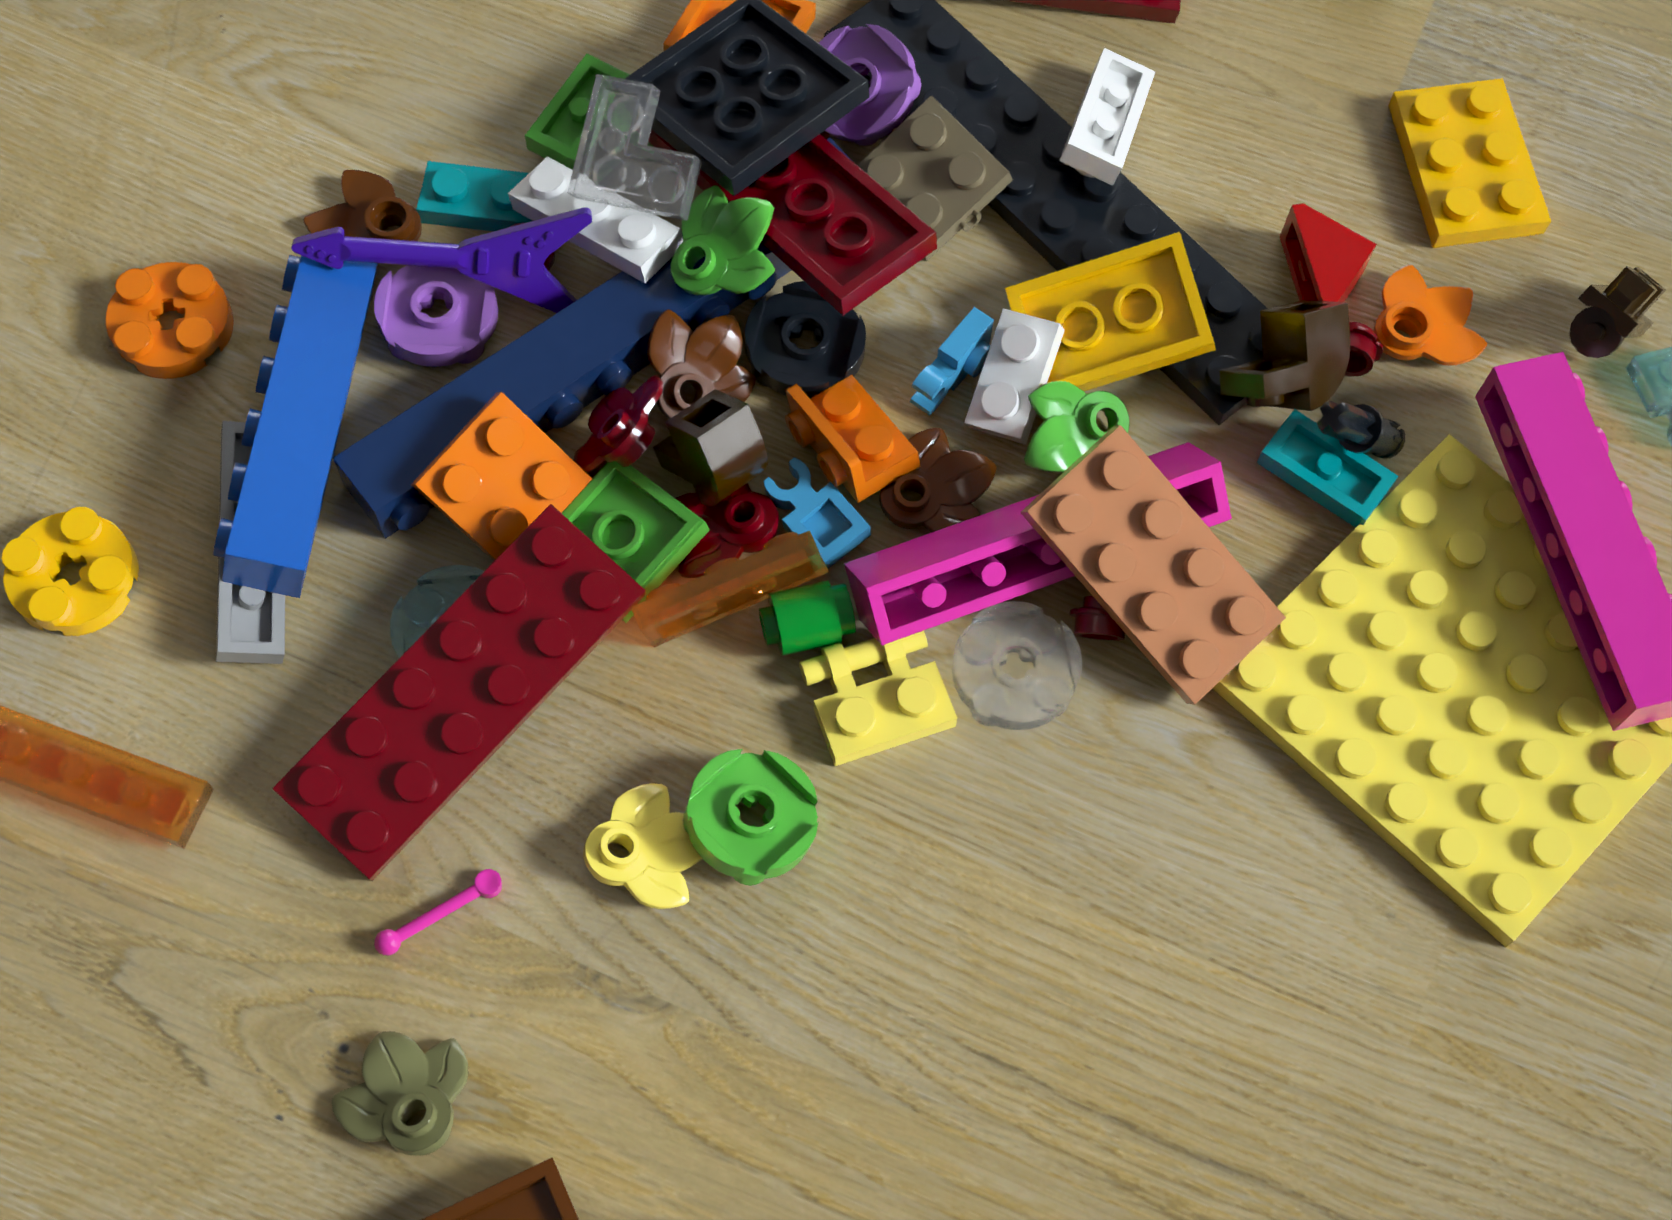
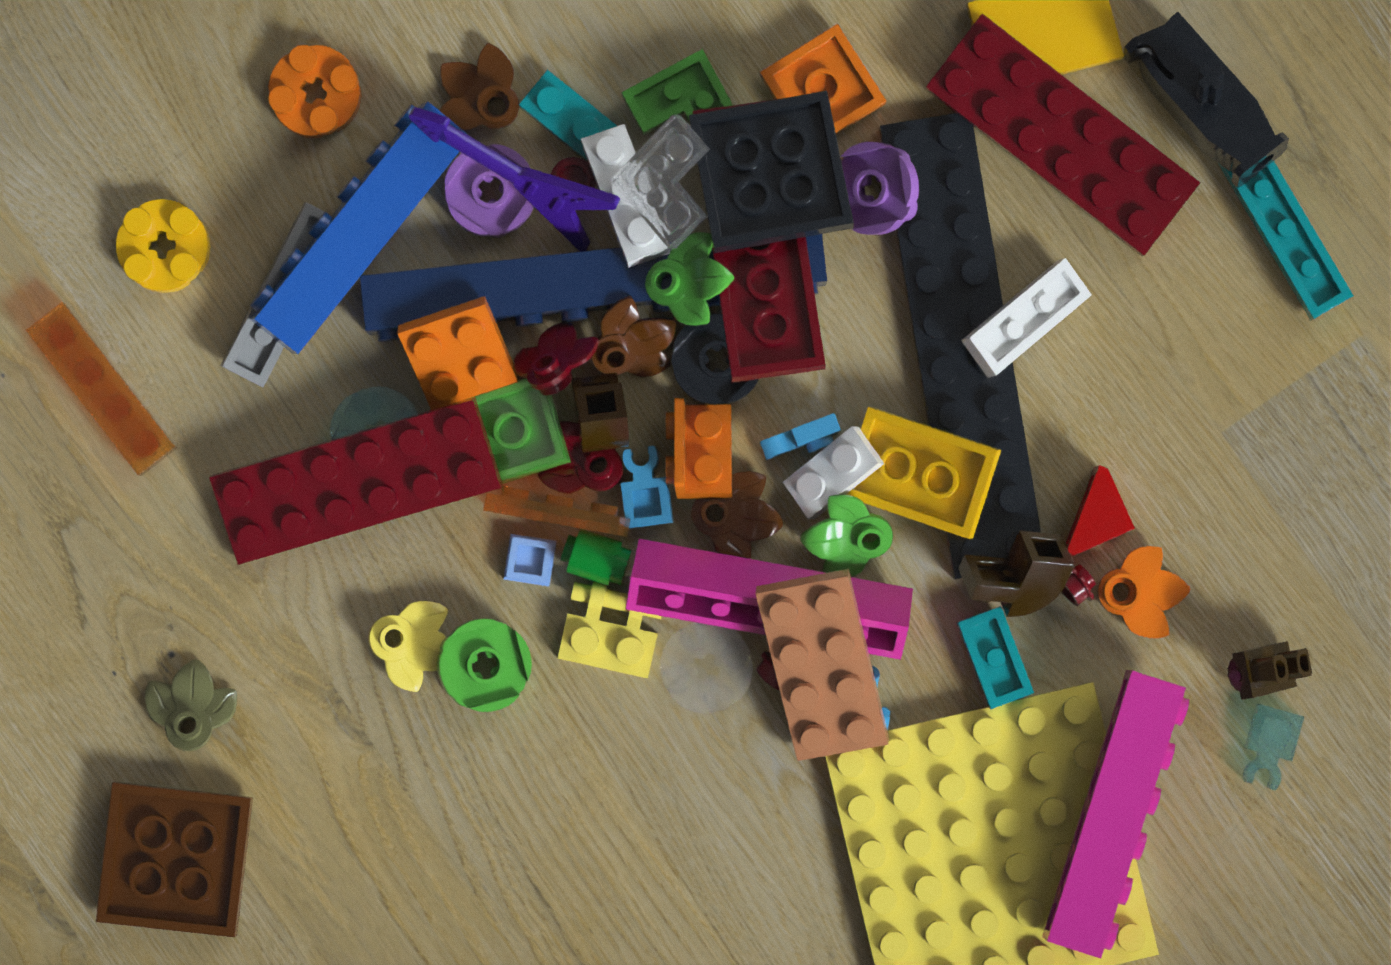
camera: 40 degrees right, 20 degrees up
(487, 884) = (306, 606): dark pink hinge -> none
(730, 672) = (530, 560): none -> light blue tile
(937, 170) = (876, 288): dark tan plate -> none
(1361, 429) = (1028, 650): black axle -> none
(1468, 163) = (1263, 492): yellow plate -> none

